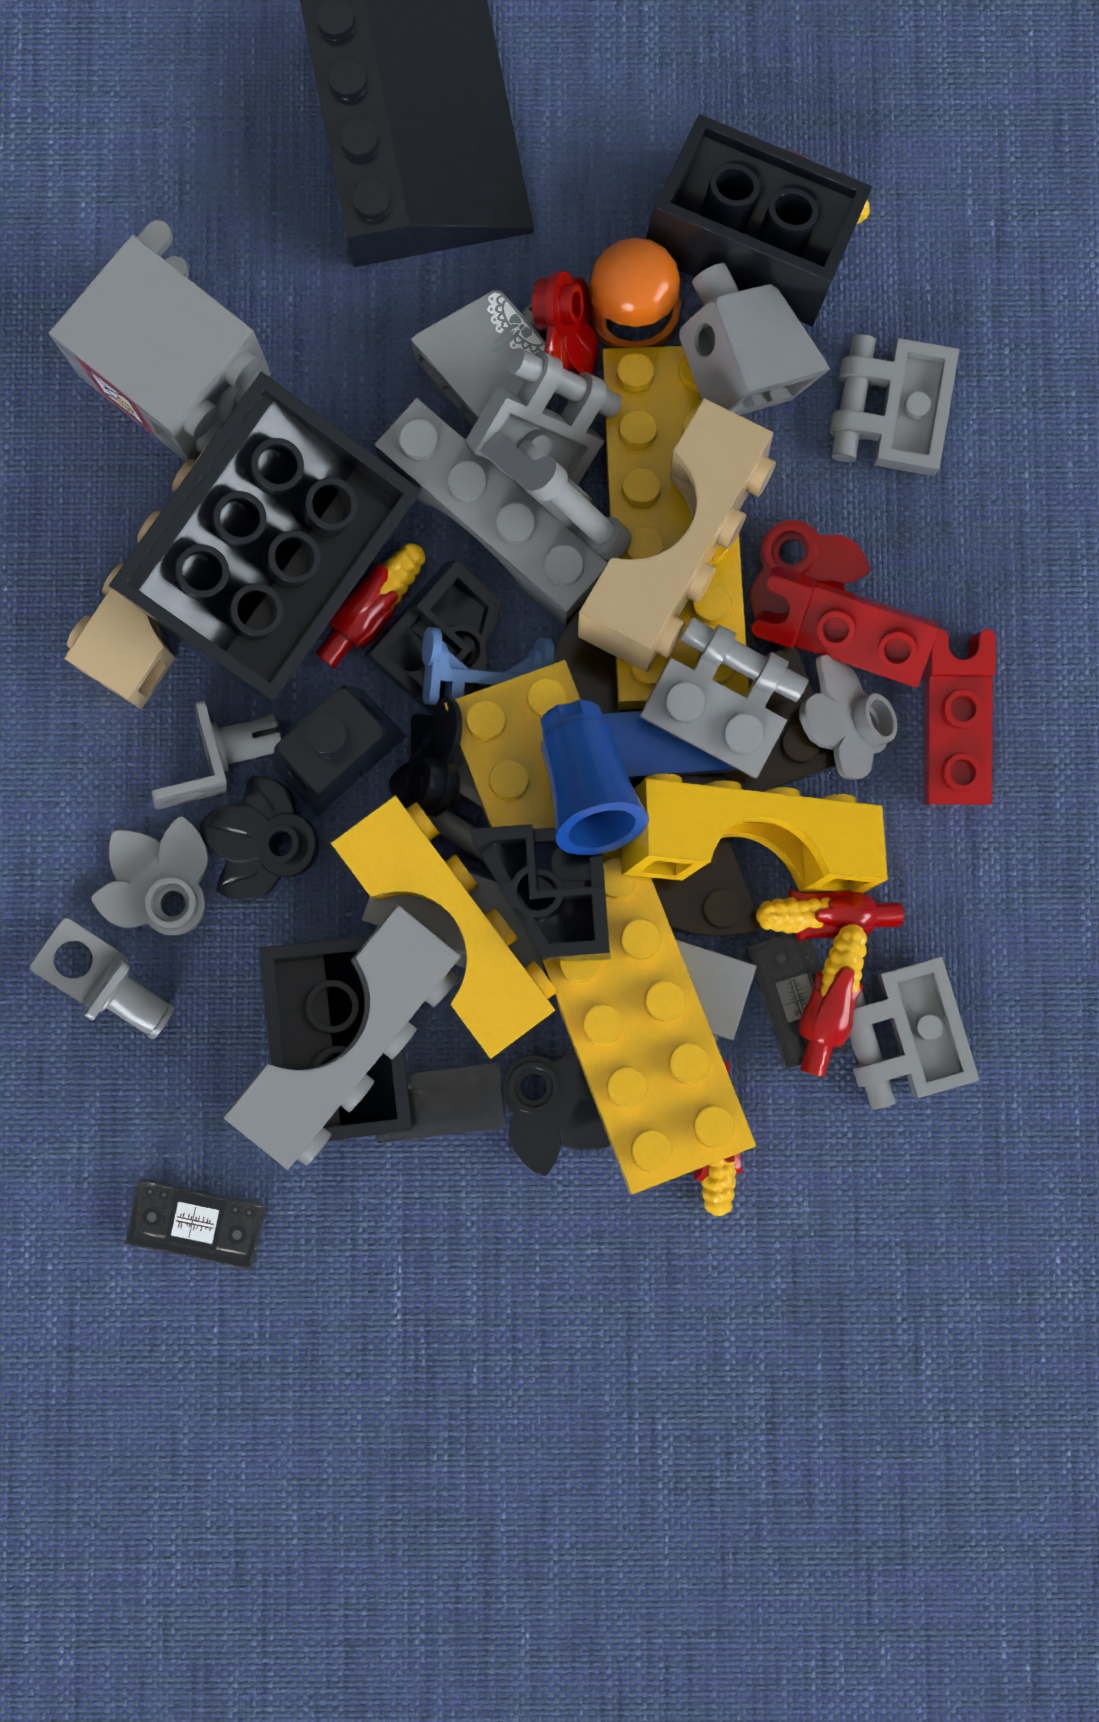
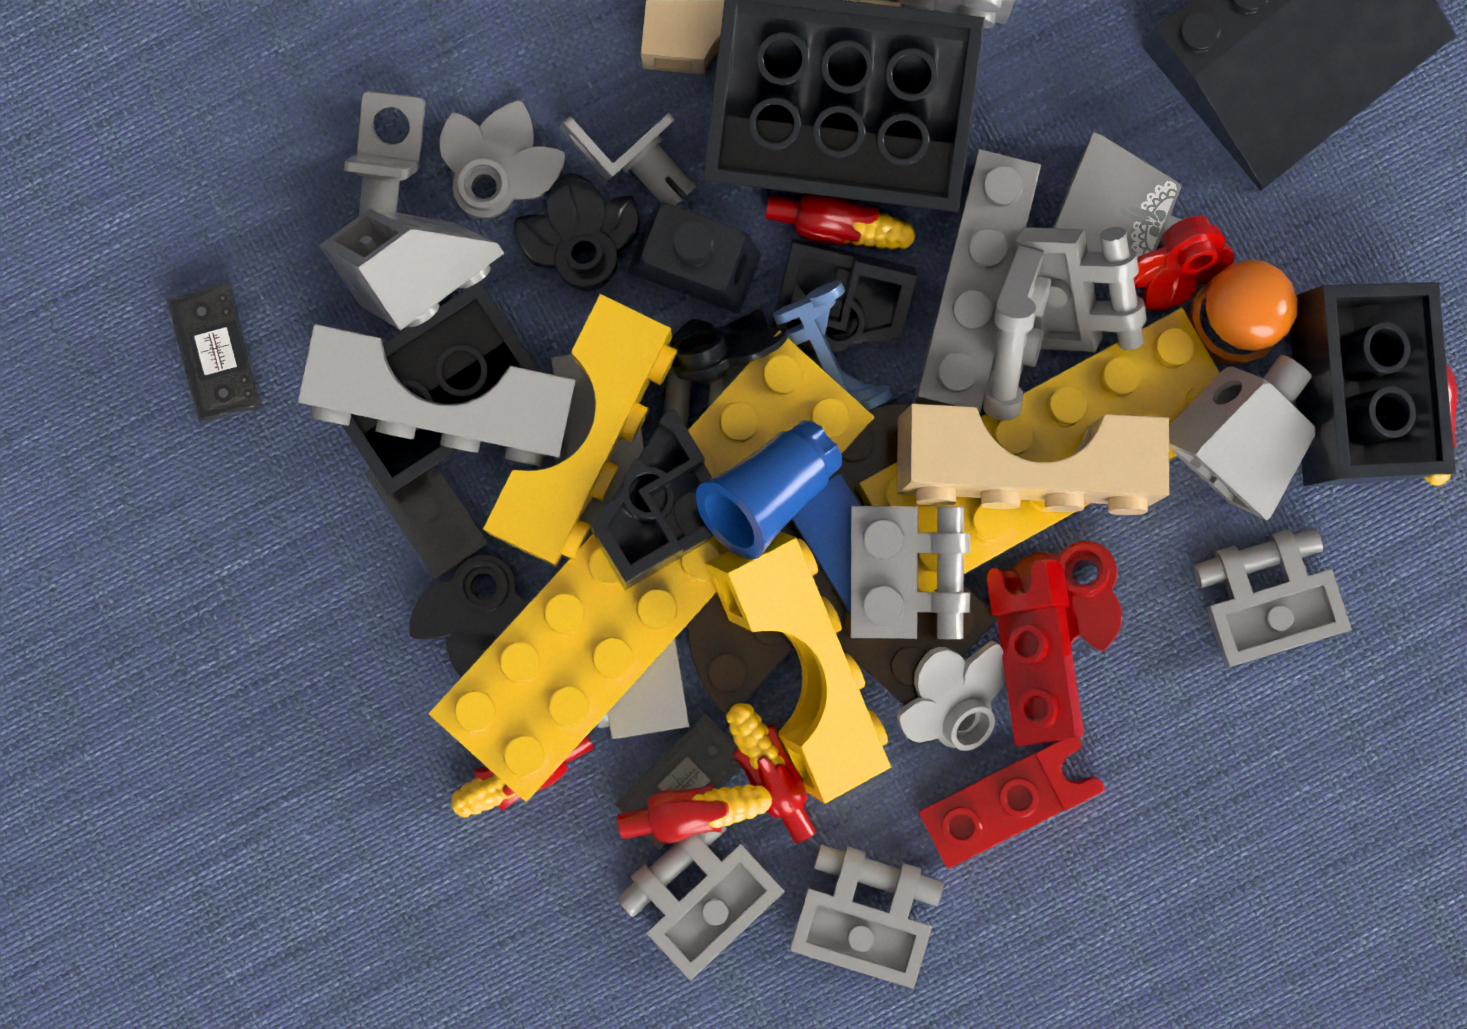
camera: 65 degrees right, 0 degrees up
(208, 1006) = (407, 263): none -> slope
(1011, 910) = (859, 935): none -> light grey plate

